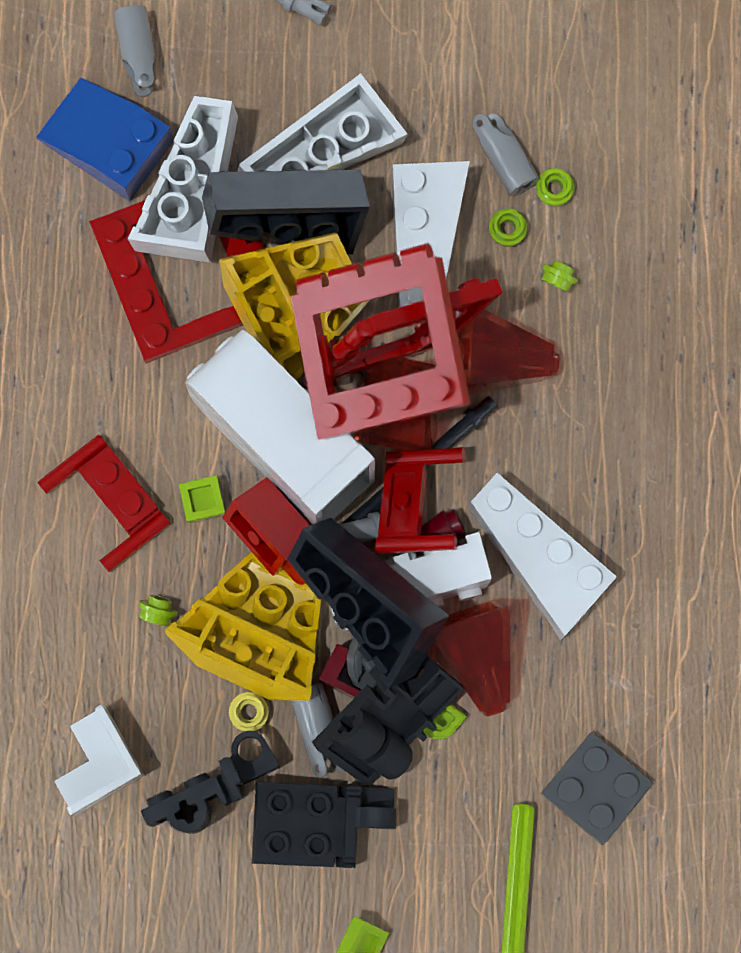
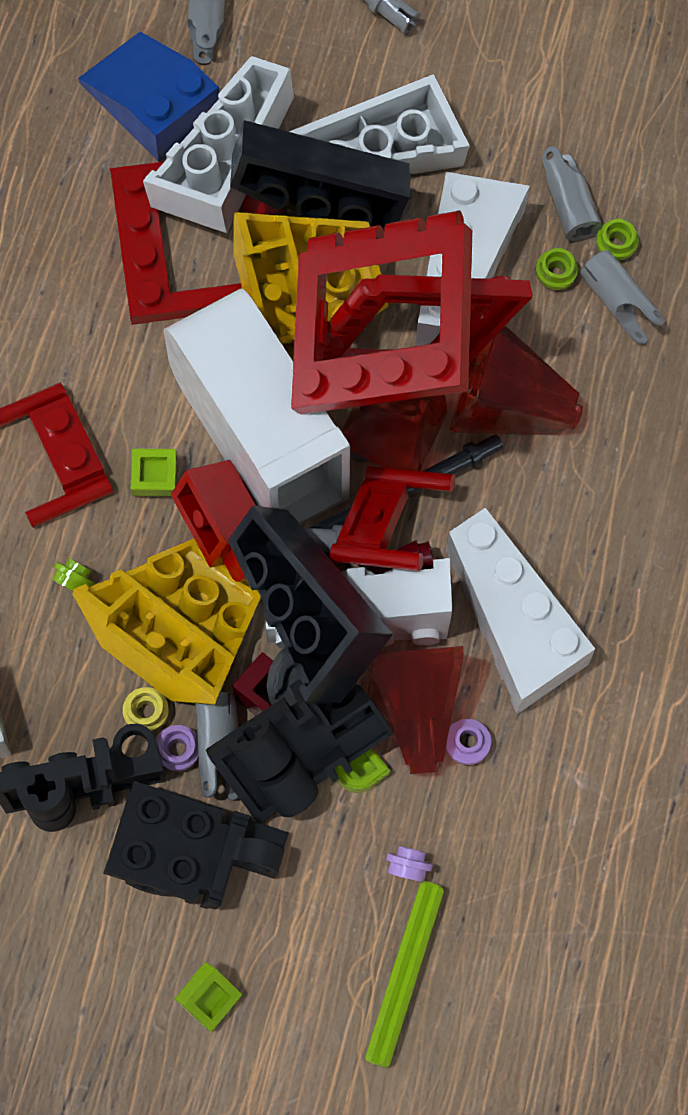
camera: 15 degrees right, 10 degrees down
(279, 726) = (173, 735): none -> lavender plate
(500, 793) = (408, 864): none -> lavender plate
(535, 667) = (466, 755): none -> lavender plate
(559, 275) = (601, 328): lime plate -> none
(570, 240) = (620, 293): none -> light grey piece
(596, 788) = (521, 886): dark grey plate -> none

